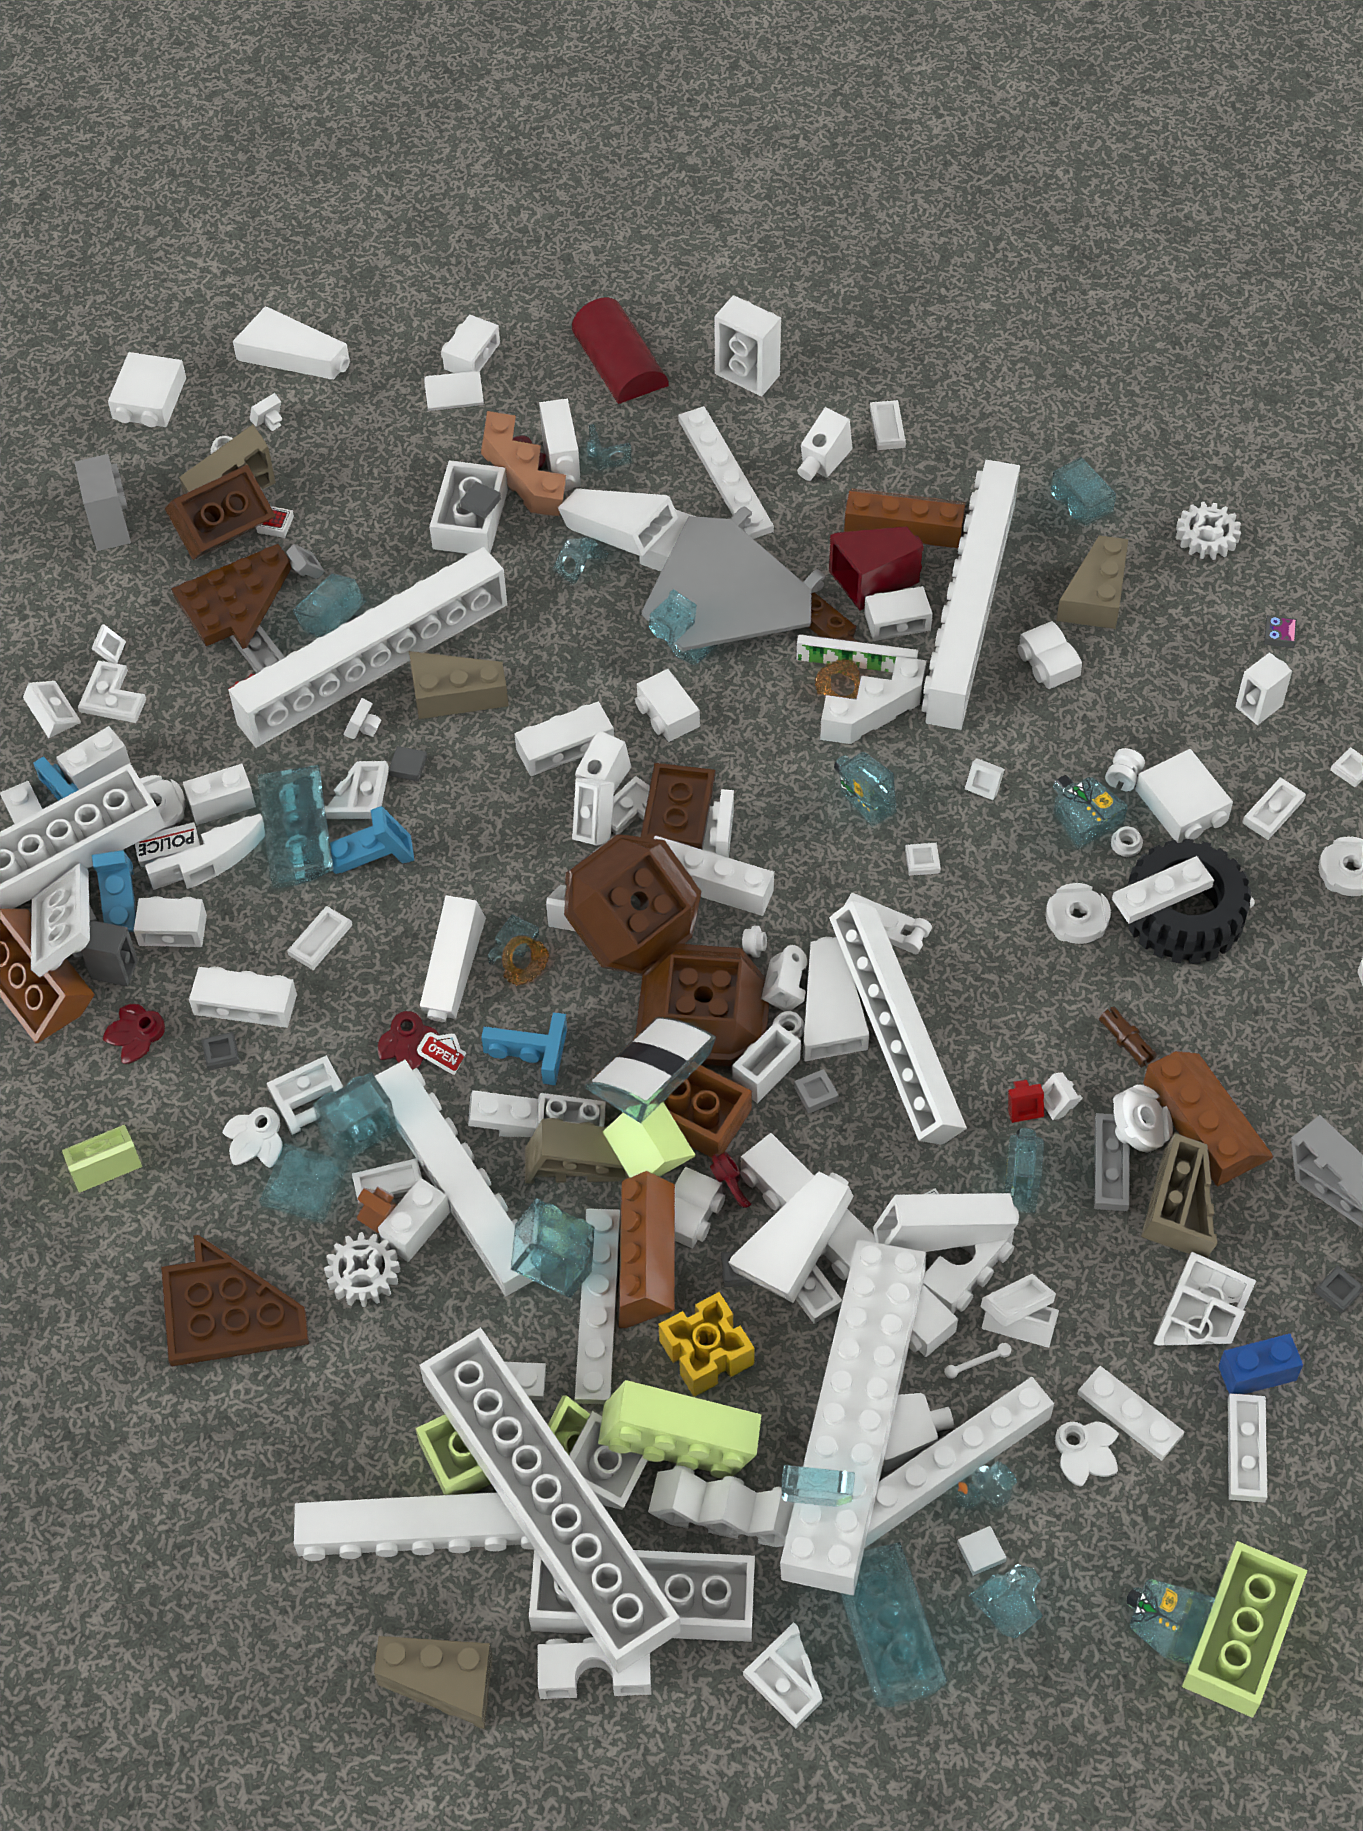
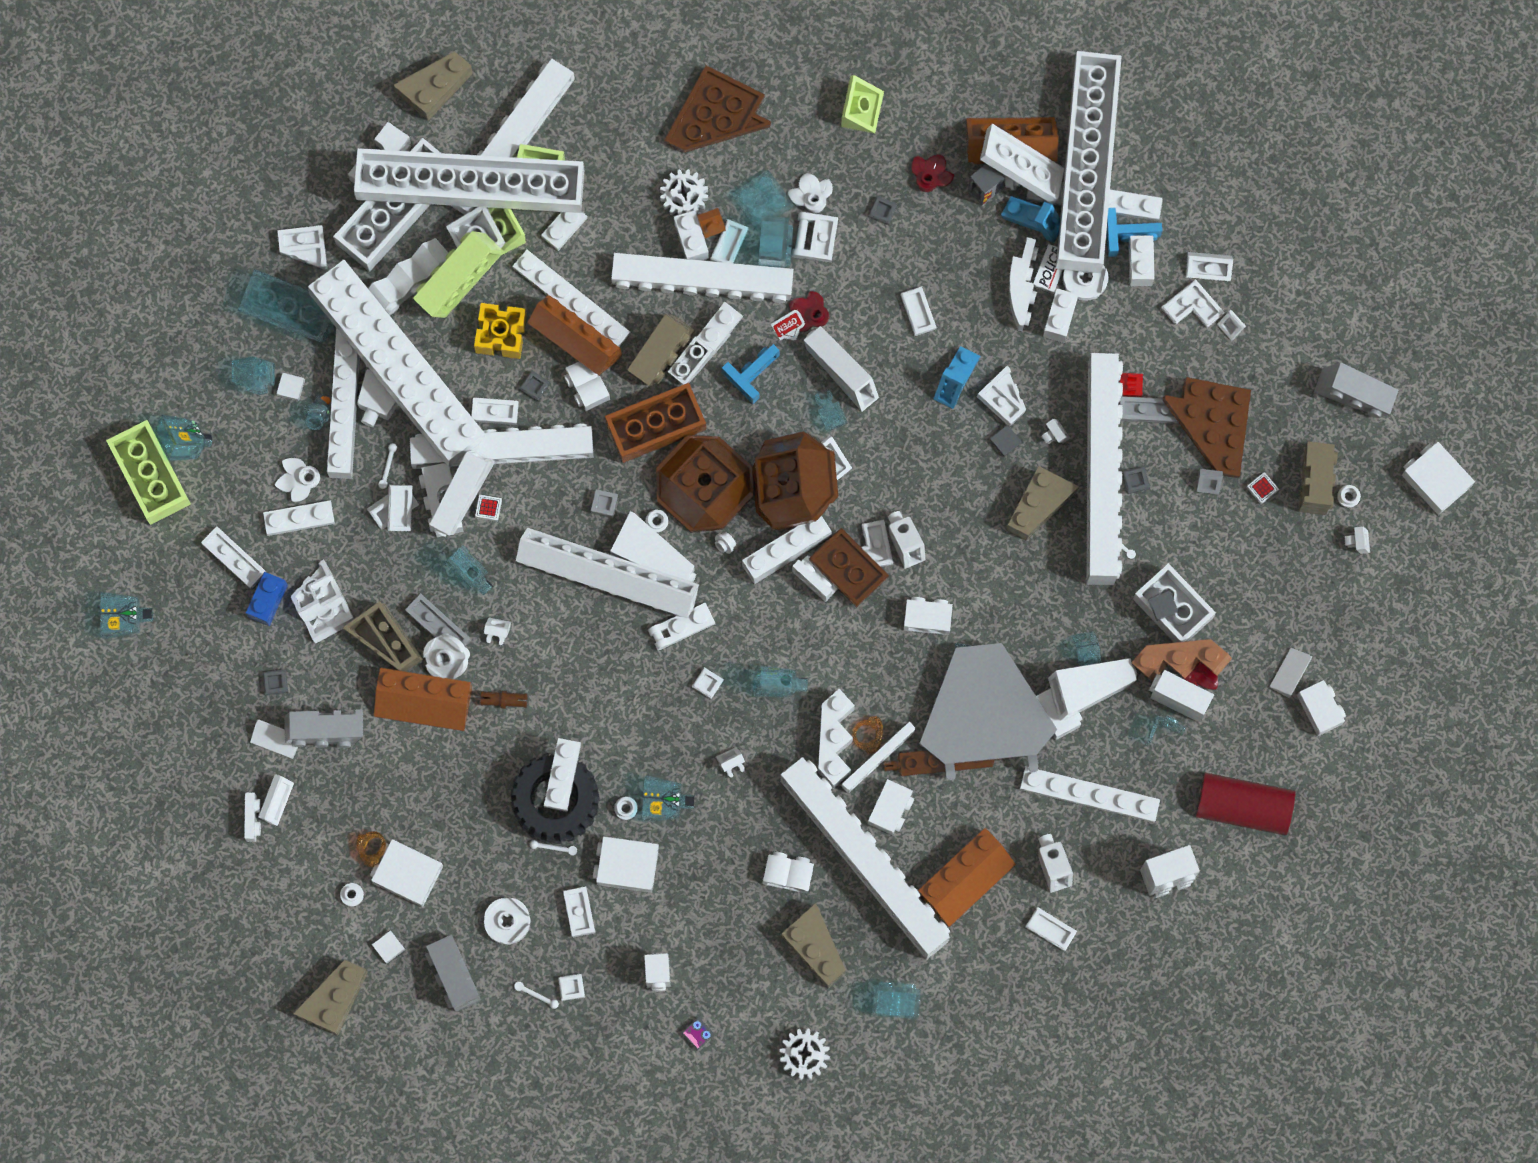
camera: 125 degrees right, 20 degrees up
(170, 922) = (989, 234): white brick -> none
(219, 511) = (1283, 448): reddish brown slope -> none
(243, 996) = (906, 241): white brick -> none
(291, 346) = (1412, 593): white slope -> none
(295, 826) = (1006, 344): clear light blue slope -> none
(329, 605) = (1158, 470): clear light blue brick -> none
(538, 962) = (804, 408): clear orange piece -> none
(553, 1248) = (611, 287): clear light blue brick -> none
(561, 738) = (951, 539): white brick -> none
(593, 811) = (879, 513): white slope -> none
(650, 1145) = (631, 380): yellowish green slope -> none
(651, 1066) = (670, 404): slope -> none
(672, 617) = (980, 658): clear light blue brick -> none
(726, 1169) = (582, 412): dark red plate -> none
(767, 1061) = (639, 485): white brick -> none
(784, 977) = (687, 539): white leg -> none
(794, 1238) = (516, 406): white slope -> none
(817, 1486) = (362, 298): clear light blue piece -> none
(875, 561) = (932, 815): dark red slope -> none
(1025, 1101) = (507, 608): red tile -> none
(1075, 929) = (600, 725): white plate -> none
(1125, 769) = (672, 847): white wheel -> none

